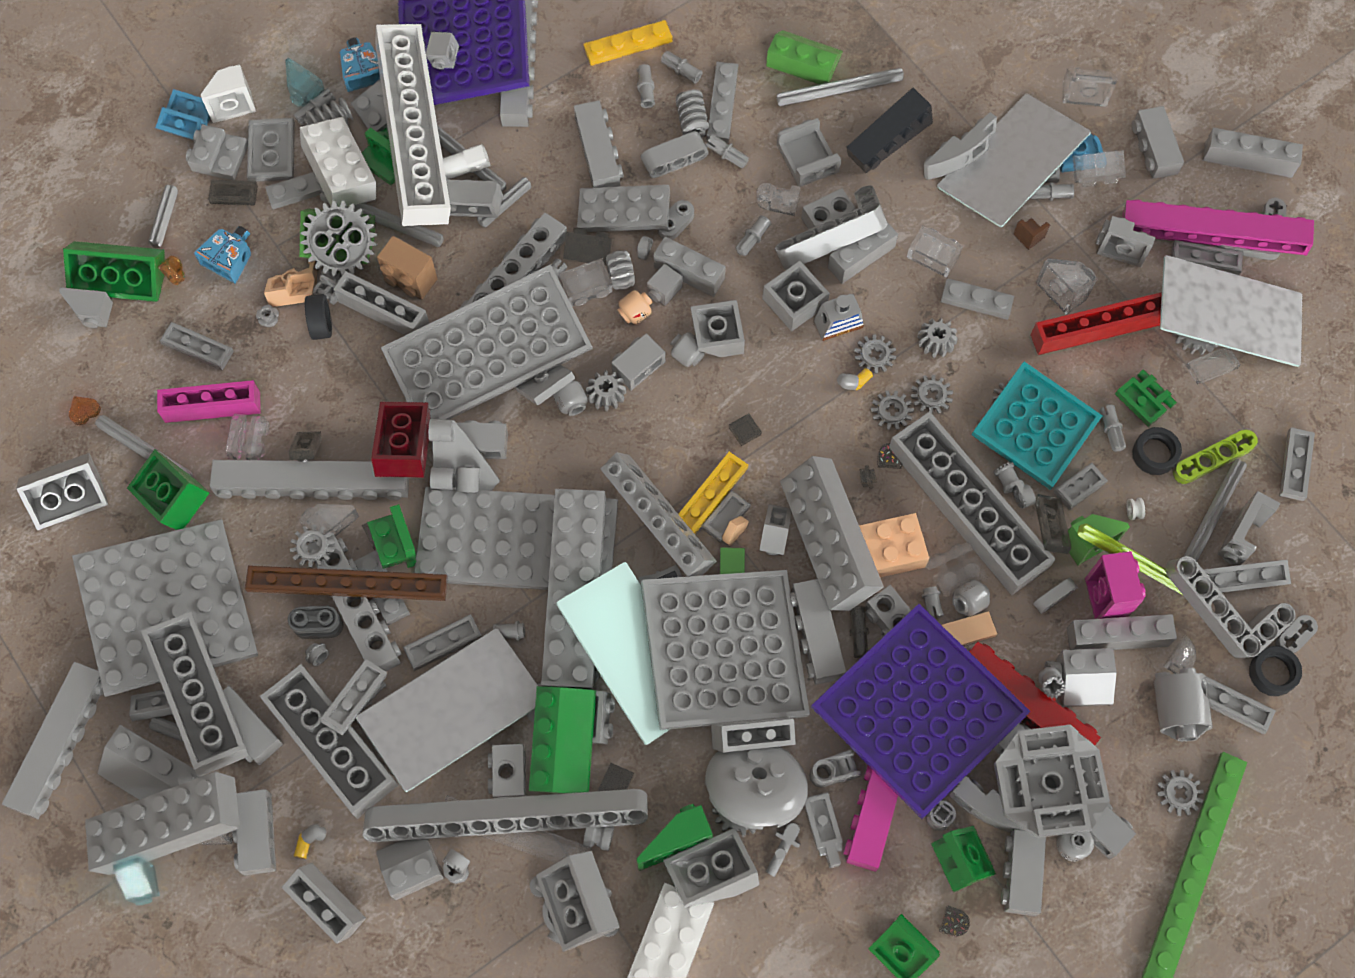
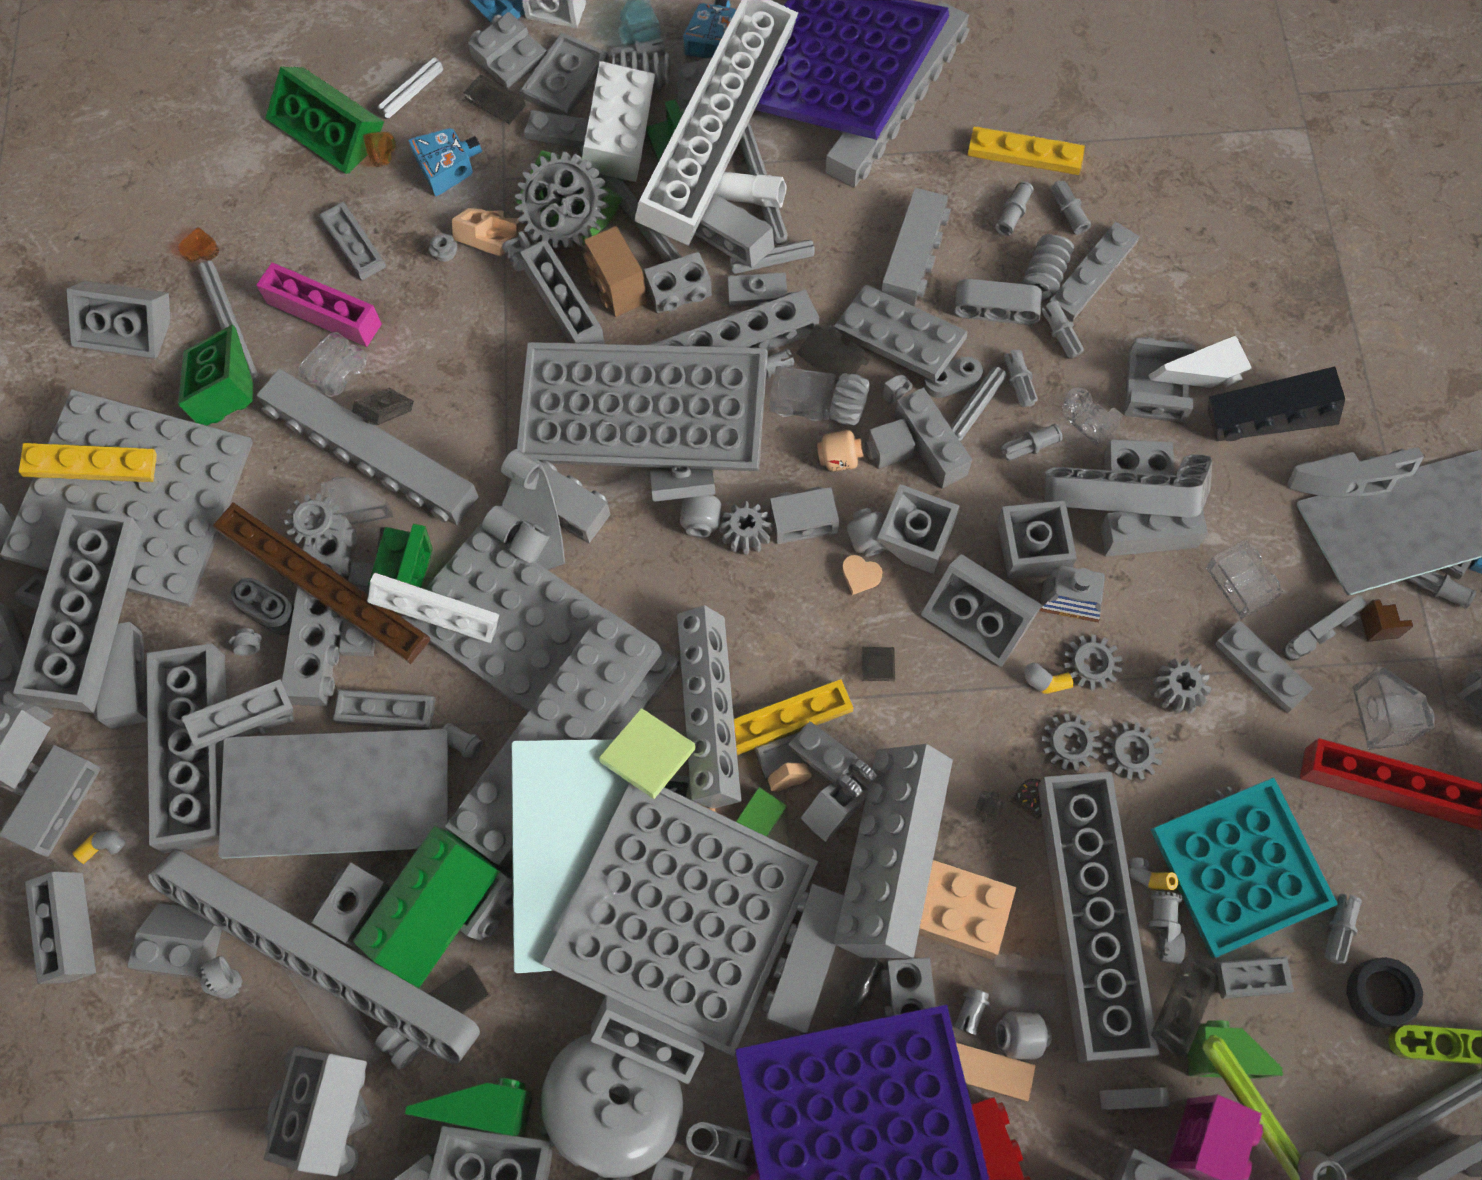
camera: 35 degrees right, 0 degrees up
(90, 306) = (273, 142): light grey slope -> none
(123, 597) = (87, 462): none -> yellow plate
(318, 317) = (488, 274): black tyre -> none
(401, 439) = (472, 455): dark red brick -> none
(438, 554) = (432, 608): none -> white tile
(442, 50) = (805, 53): light grey brick -> none
(448, 250) = (676, 277): none -> light grey brick
(508, 230) = (756, 288): none -> light grey plate
(643, 562) = (647, 753): none -> yellowish green tile
(669, 676) = (586, 908): none -> clear brick
(698, 379) = (861, 574): none -> light nougat tile
(702, 226) = (978, 402): none -> light grey axle
(720, 197) = (1021, 378): none -> light grey axle
(755, 502) = (830, 758): none -> light grey hinge
(788, 359) = (981, 609): none -> light grey slope
(803, 57) = (1222, 267): bright green slope -> none
(834, 128) = (1207, 367): none -> white slope
(840, 86) = (1248, 324): light grey axle -> none
(991, 463) = (1154, 881): none -> arm
(999, 256) = (1323, 629): none -> light grey hinge
(1135, 508) = (1310, 1051): white bush -> none
(1141, 401) = (1403, 916): green plate -> none

